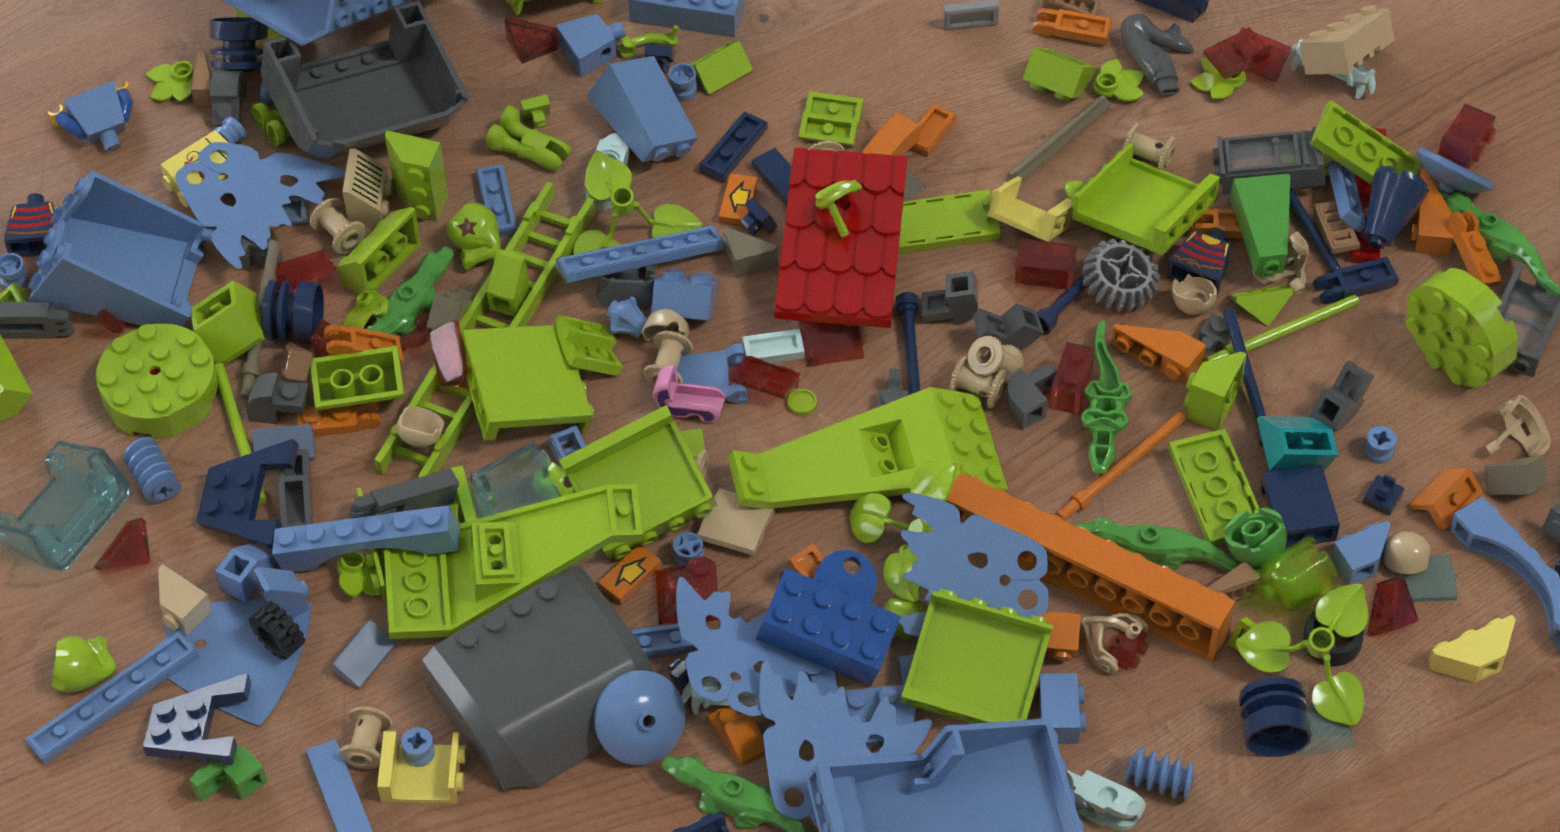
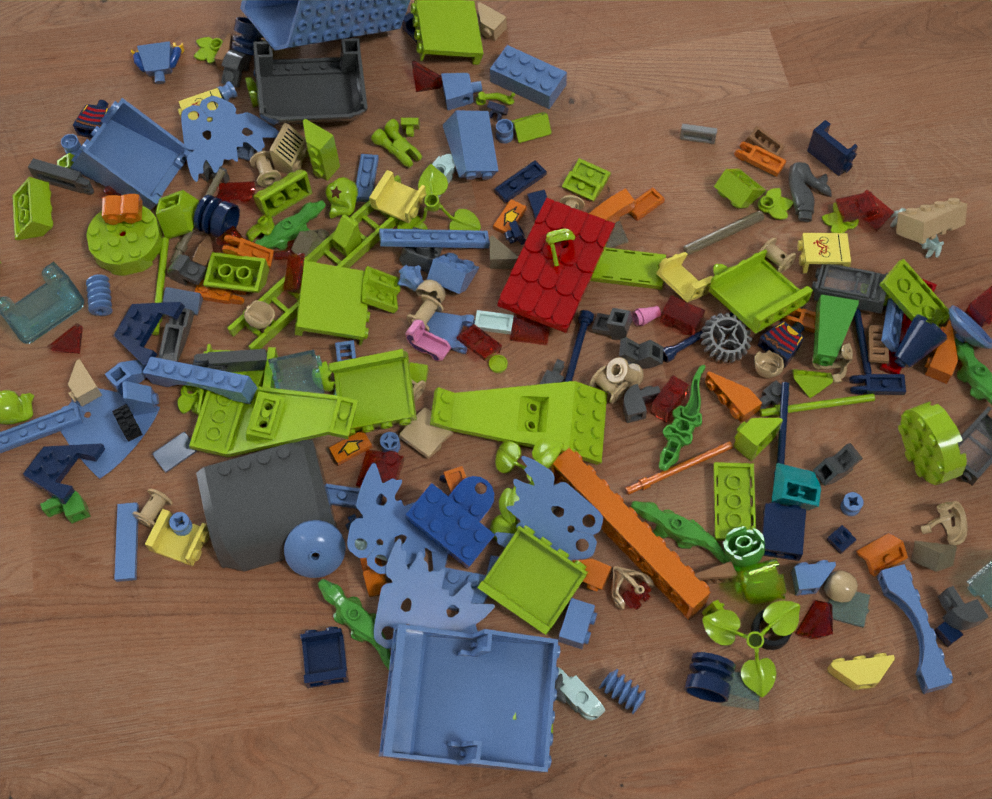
camera: 20 degrees right, 10 degrees up
(145, 332) = (122, 208): none -> orange brick
(564, 213) = (397, 198): none -> light yellow panel
(993, 277) = (644, 315): none -> bright pink cone
(1211, 122) = (824, 249): none -> light yellow panel
(1473, 248) = (963, 386): orange hinge -> none

